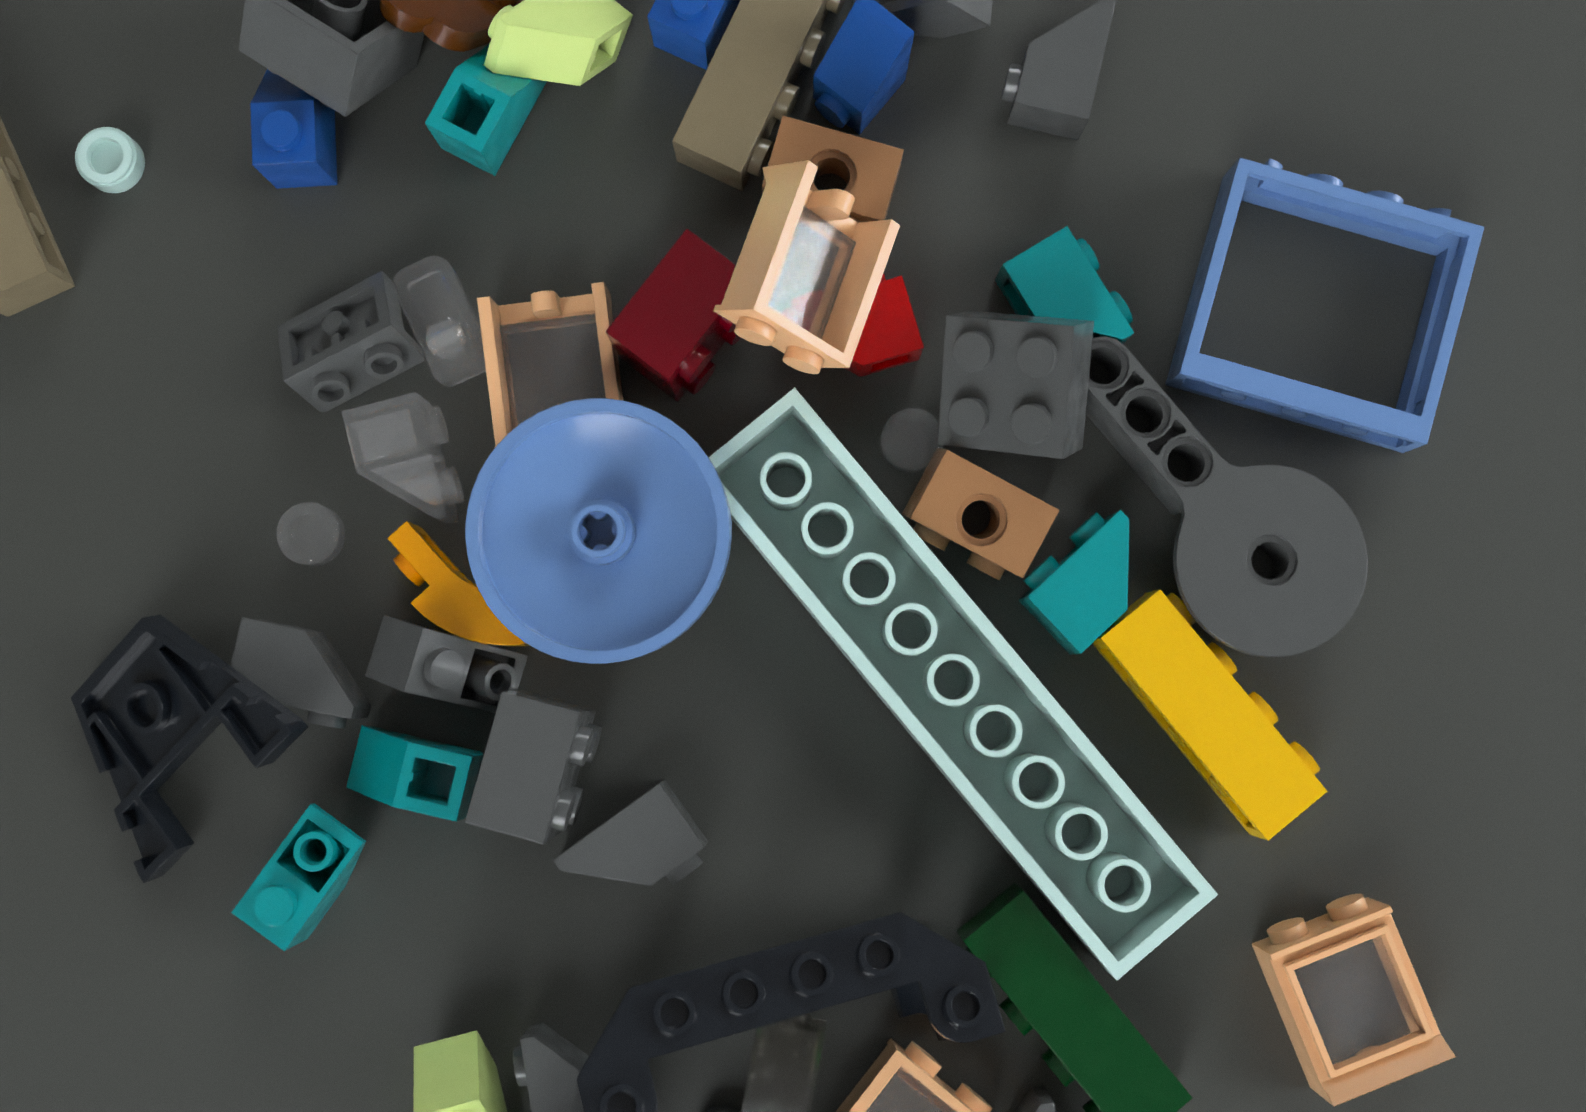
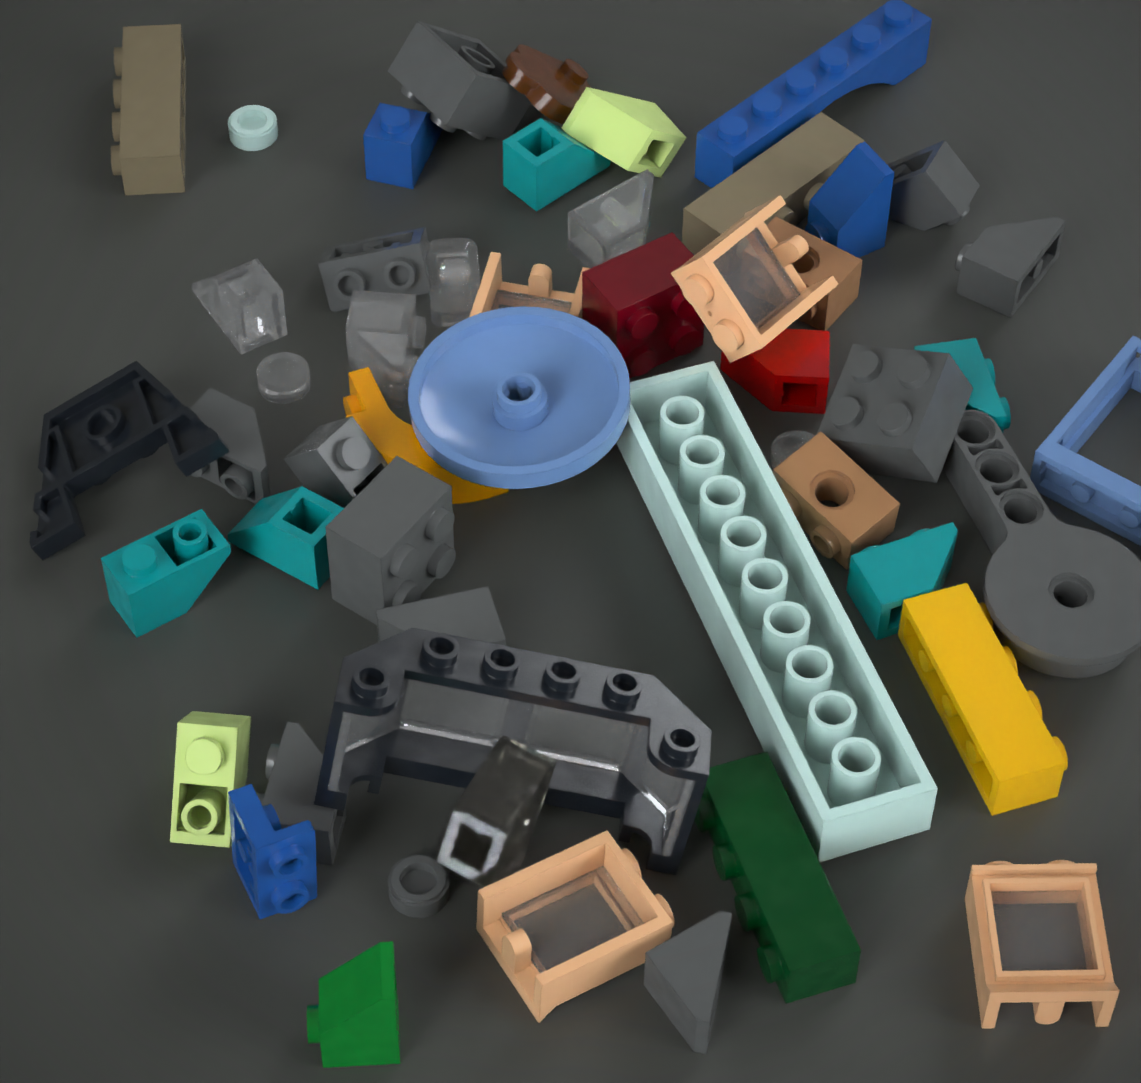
camera: 20 degrees right, 35 degrees down
(216, 459) = (244, 304): none -> clear slope
(599, 181) = (612, 221): none -> clear slope

